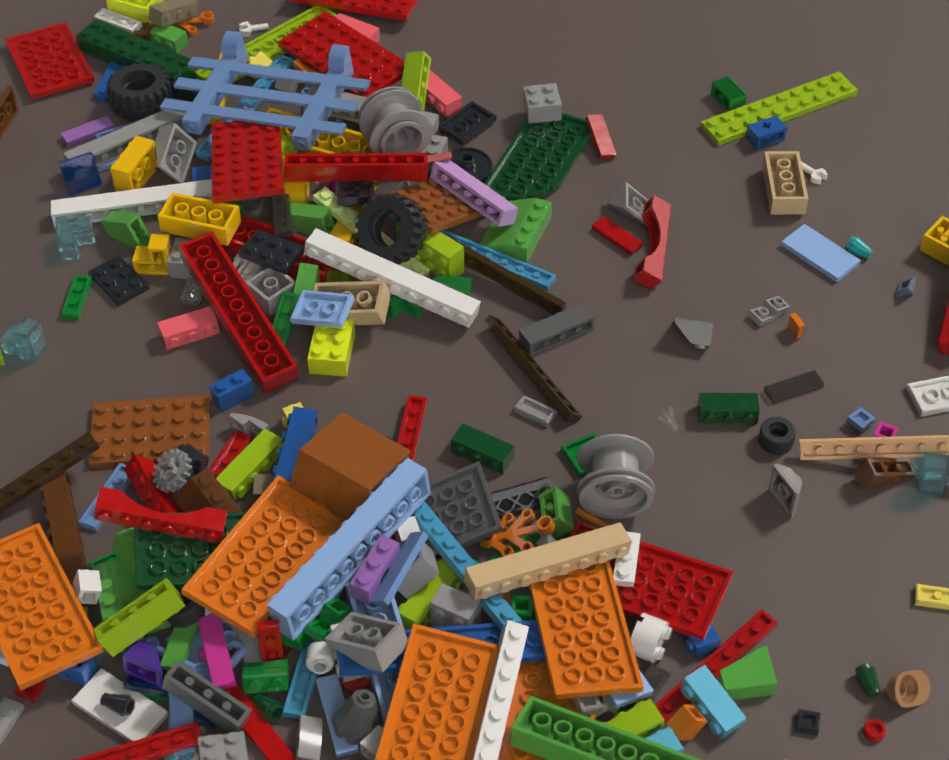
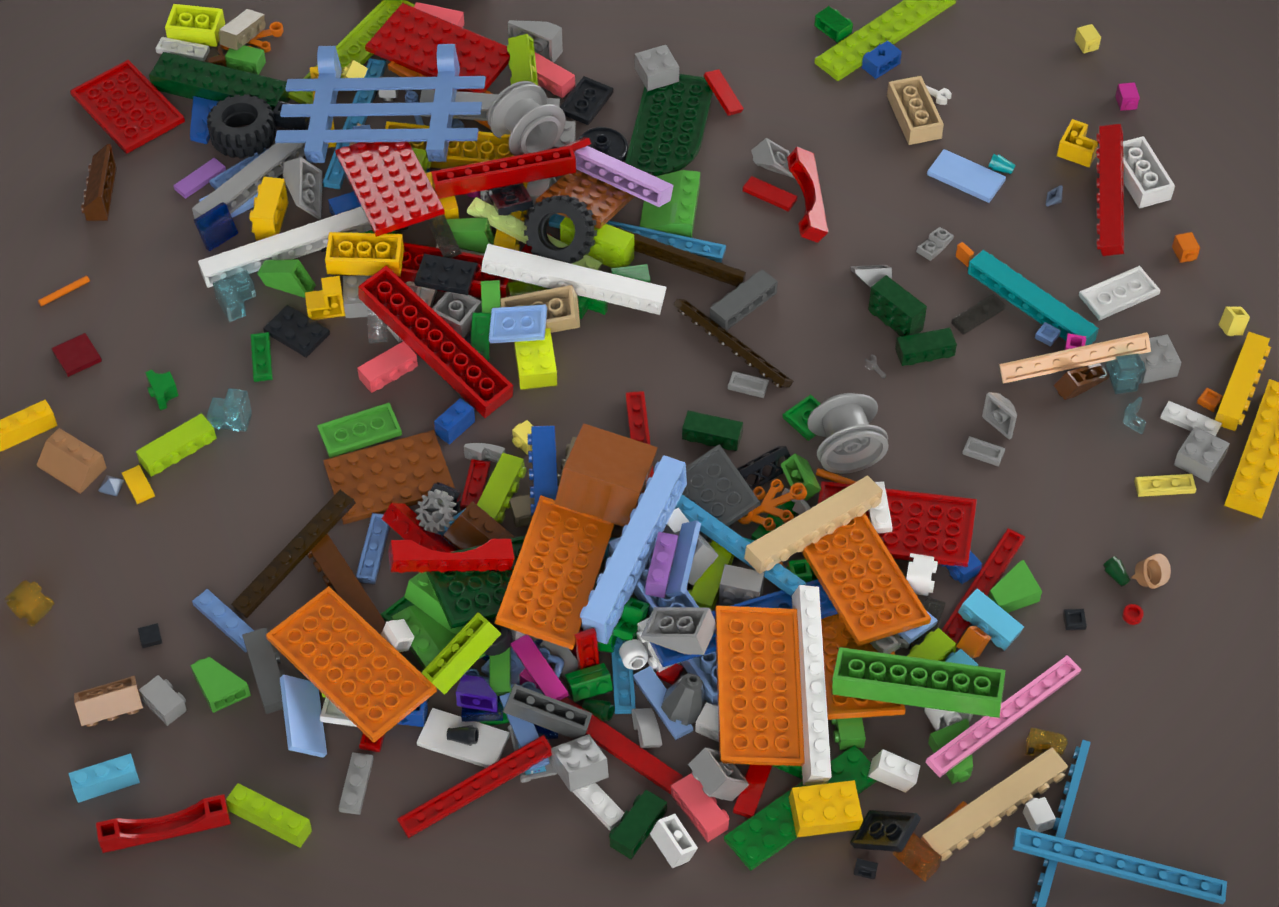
camera: 15 degrees left, 5 degrees up
(139, 381) = (359, 430): none -> bright green plate
(246, 28) = (322, 34): white bar -> none
(445, 60) = (545, 35): none -> light grey slope
(708, 363) = (897, 307): none -> dark green brick
(759, 524) = (983, 451): none -> light grey tile
(774, 444) = (977, 373): black tyre -> none
(852, 380) = (1029, 297): none -> teal brick
(928, 516) = (1130, 412): none -> clear light blue bracket

